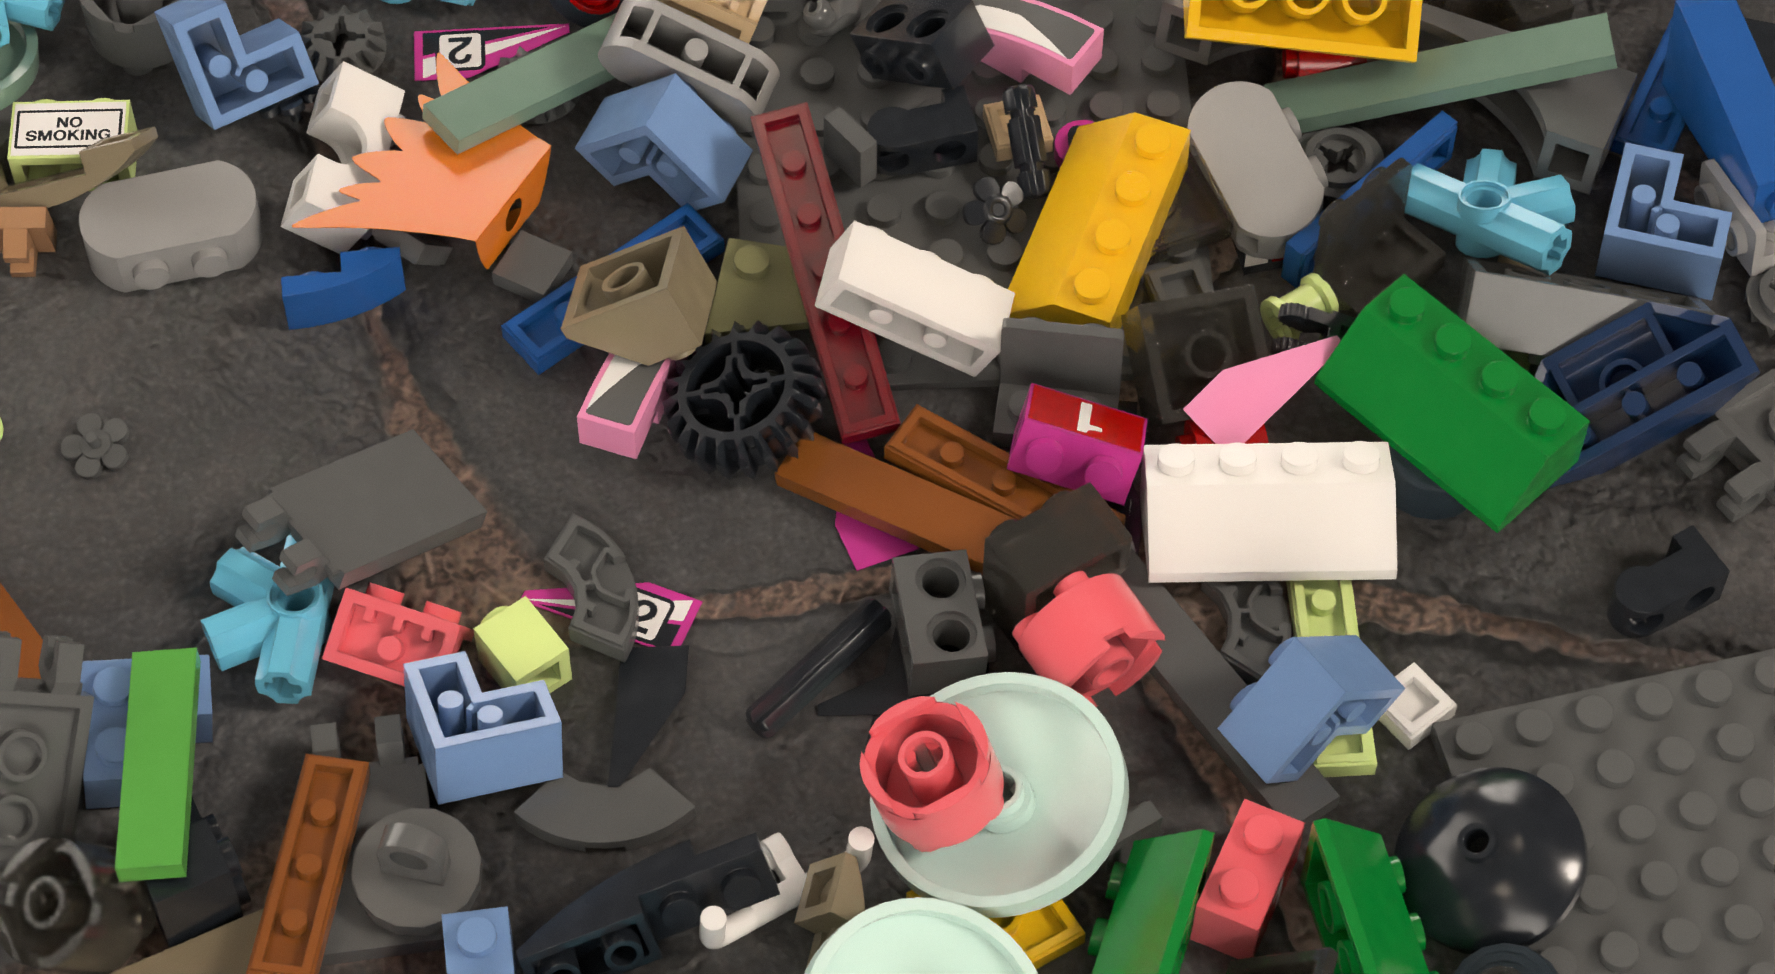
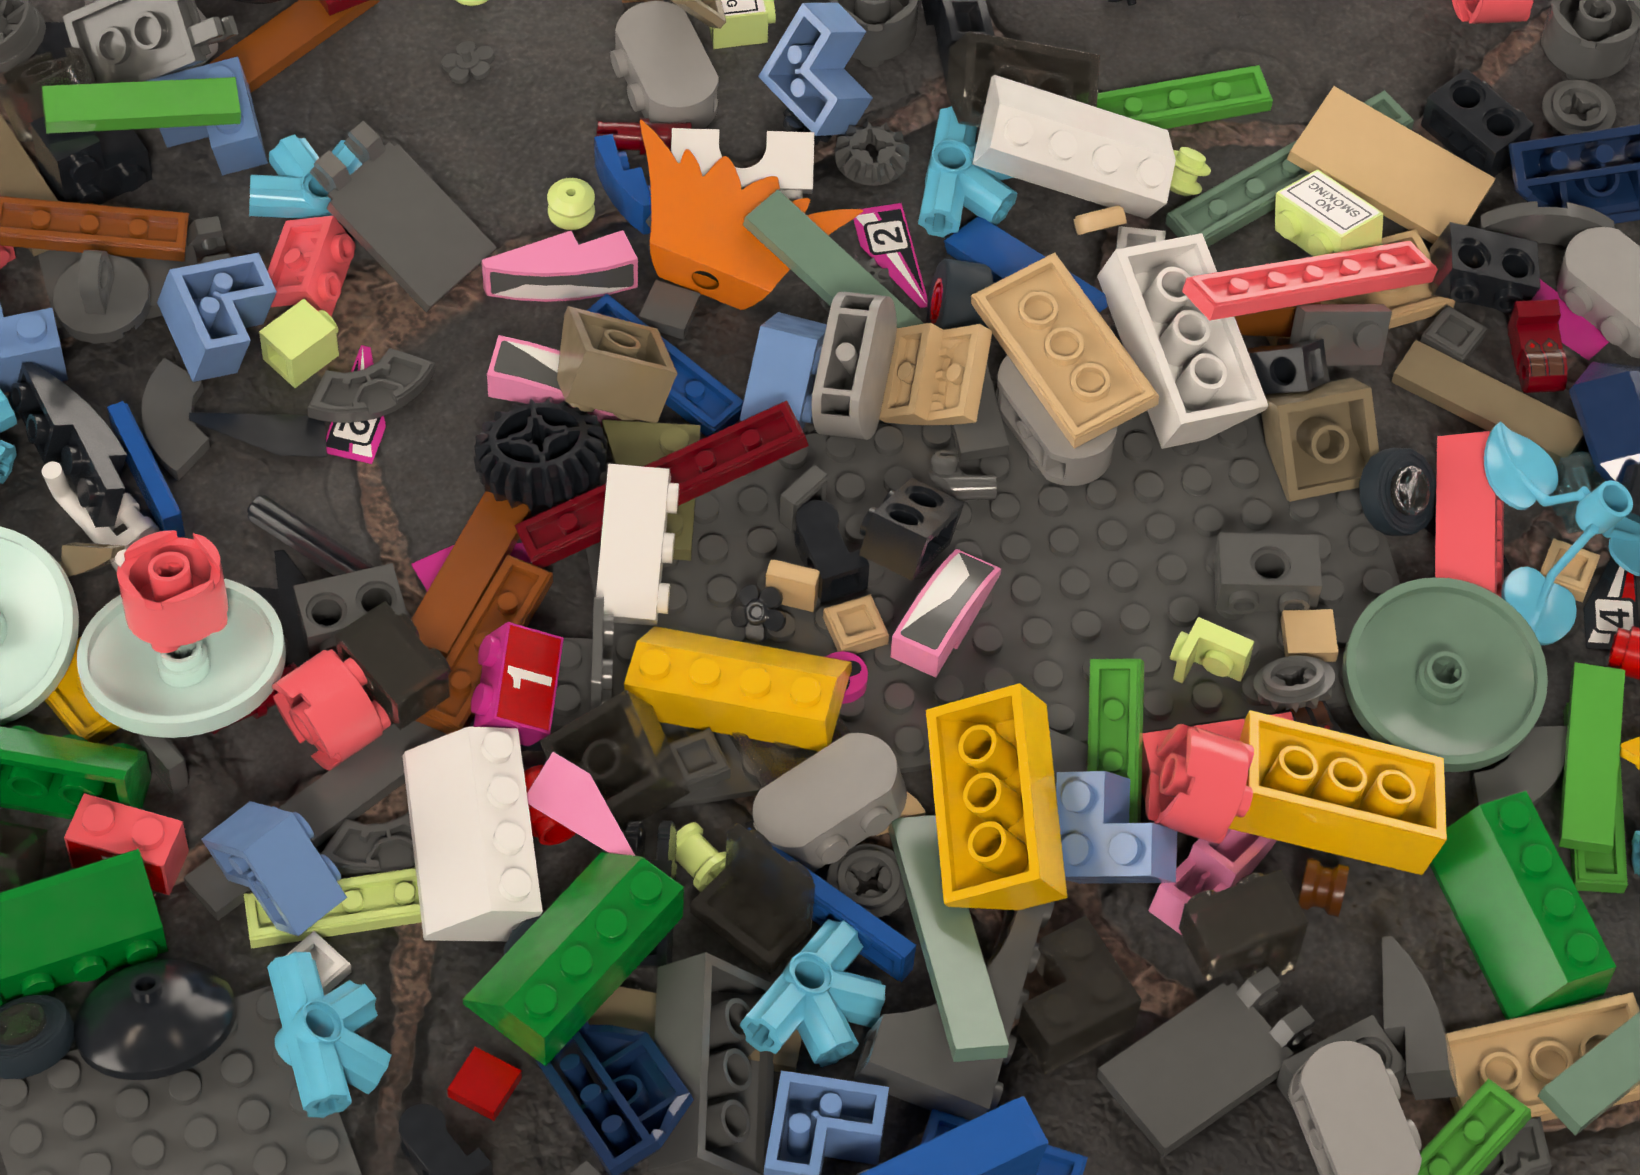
camera: 80 degrees right, 0 degrees up
(266, 265) = (629, 135): none -> dark red pin
(360, 346) = (571, 203): none -> yellowish green wheel
(461, 358) = (562, 269): none -> bright pink slope
(707, 829) = (145, 470): none -> blue tile
(966, 168) = (795, 582): none -> tan tile
(1027, 141) = (826, 622): black axle -> none
(1532, 680) = (321, 1035): none -> medium azure piece
(1568, 544) = (484, 1083): none -> red tile

